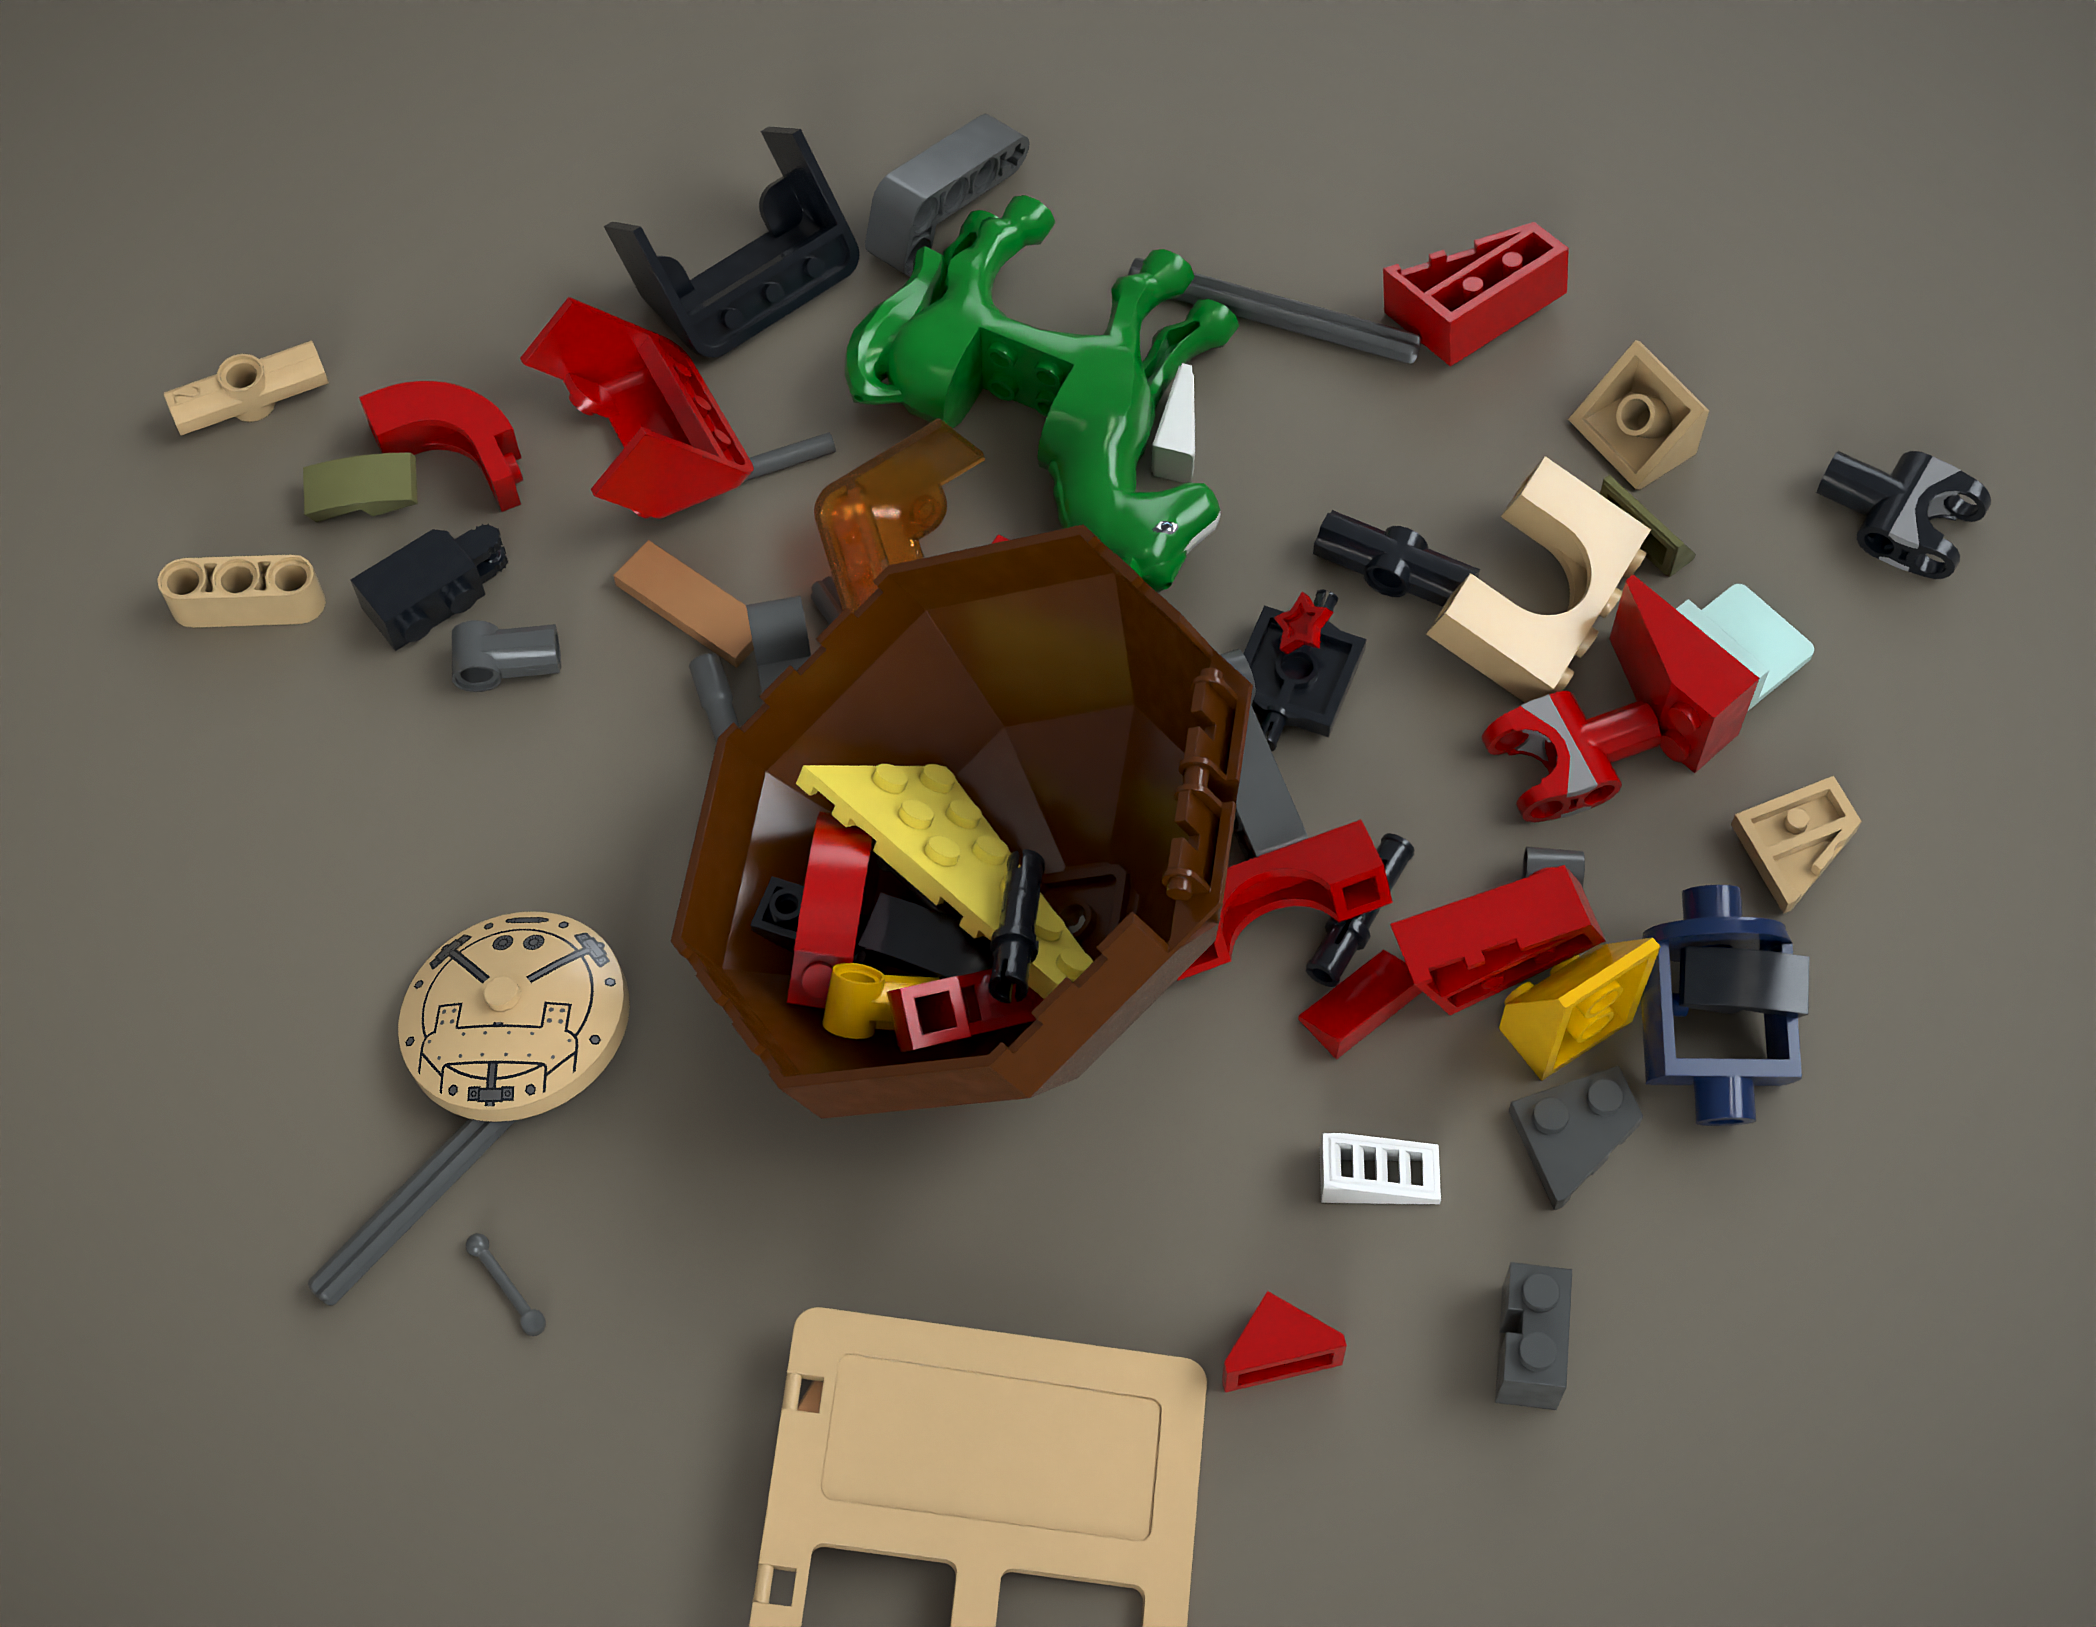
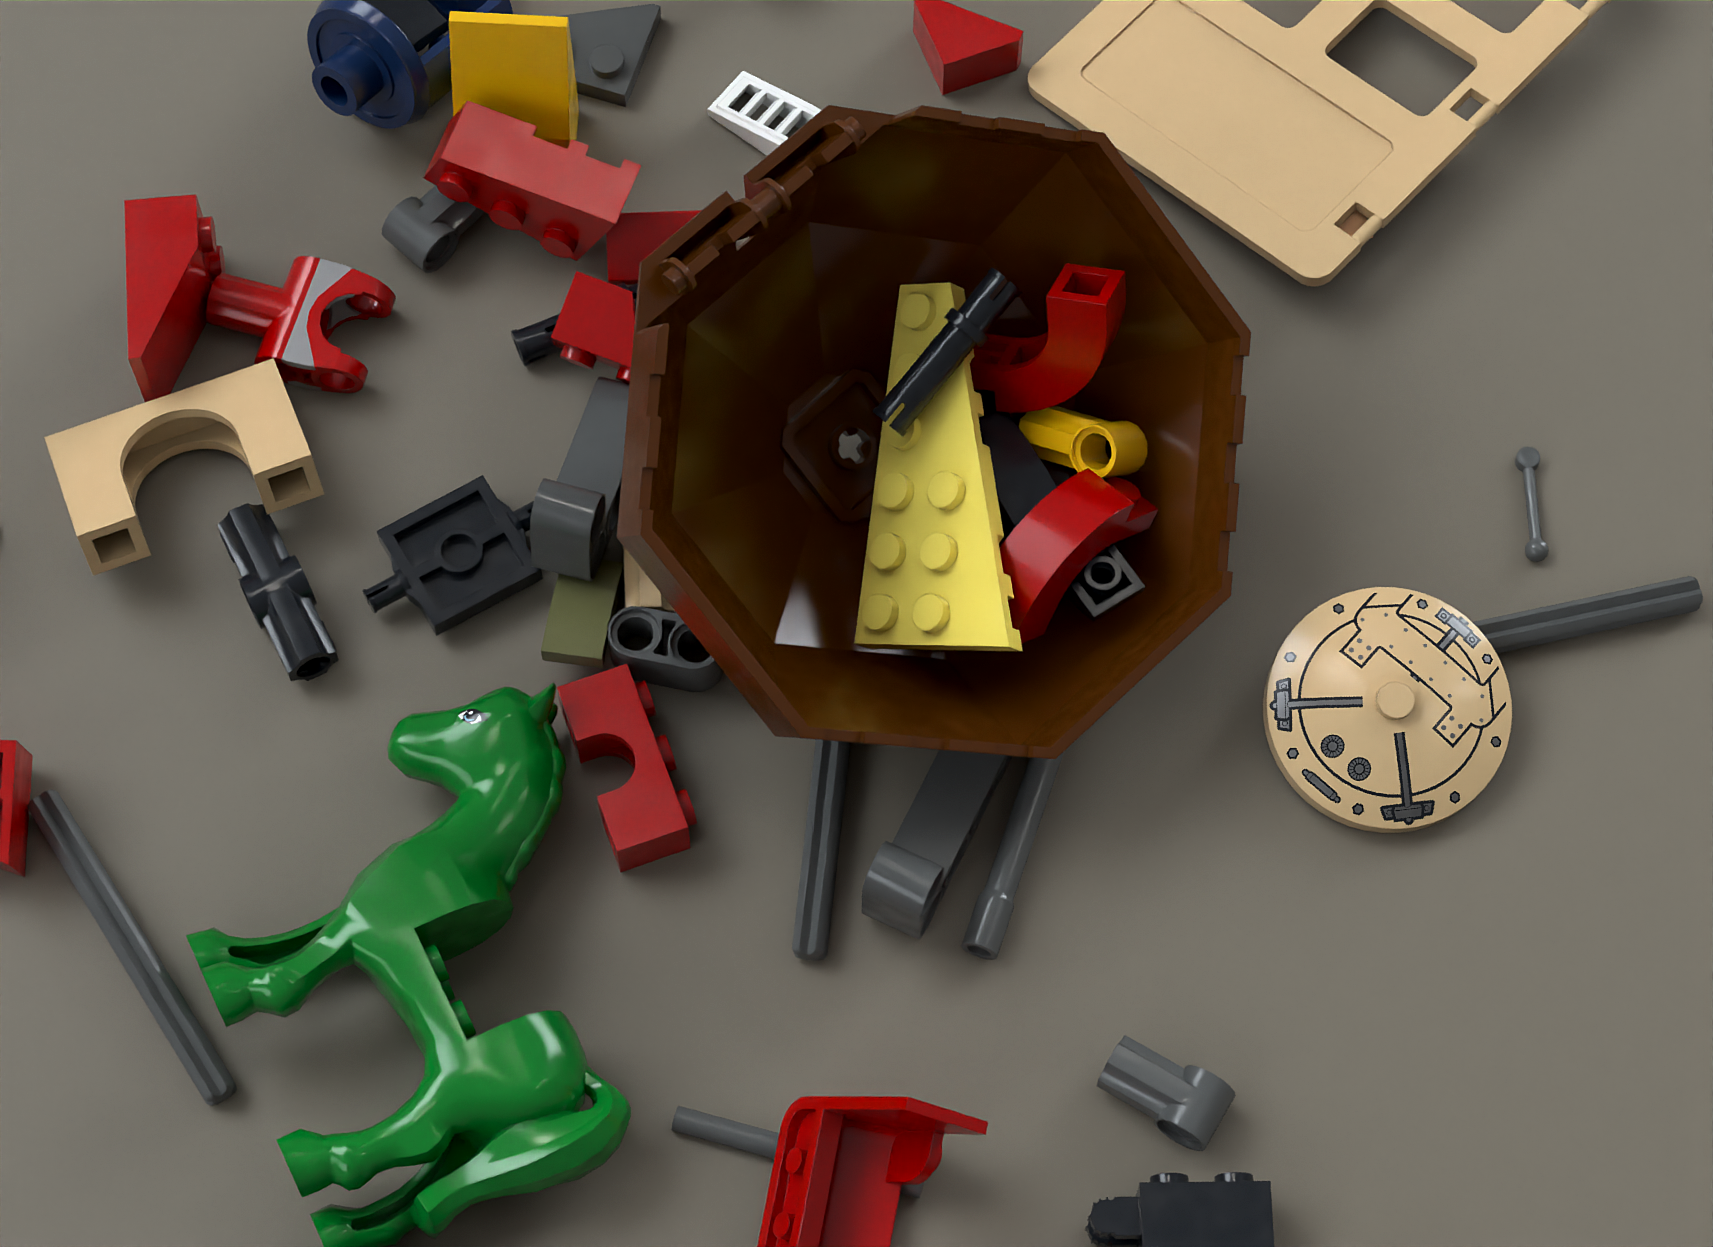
camera: 145 degrees left, 5 degrees up
(688, 602) = (944, 1025): medium nougat tile -> none
(887, 506) = (758, 890): clear orange windscreen -> none
(1175, 439) = (334, 872): white slope -> none
(1302, 624) = (428, 561): red piece -> none
(1661, 544) = (28, 475): olive slope -> none
(1753, 636) = (71, 310): light aqua bracket -> none
(1797, 837) = (197, 131): tan wing -> none

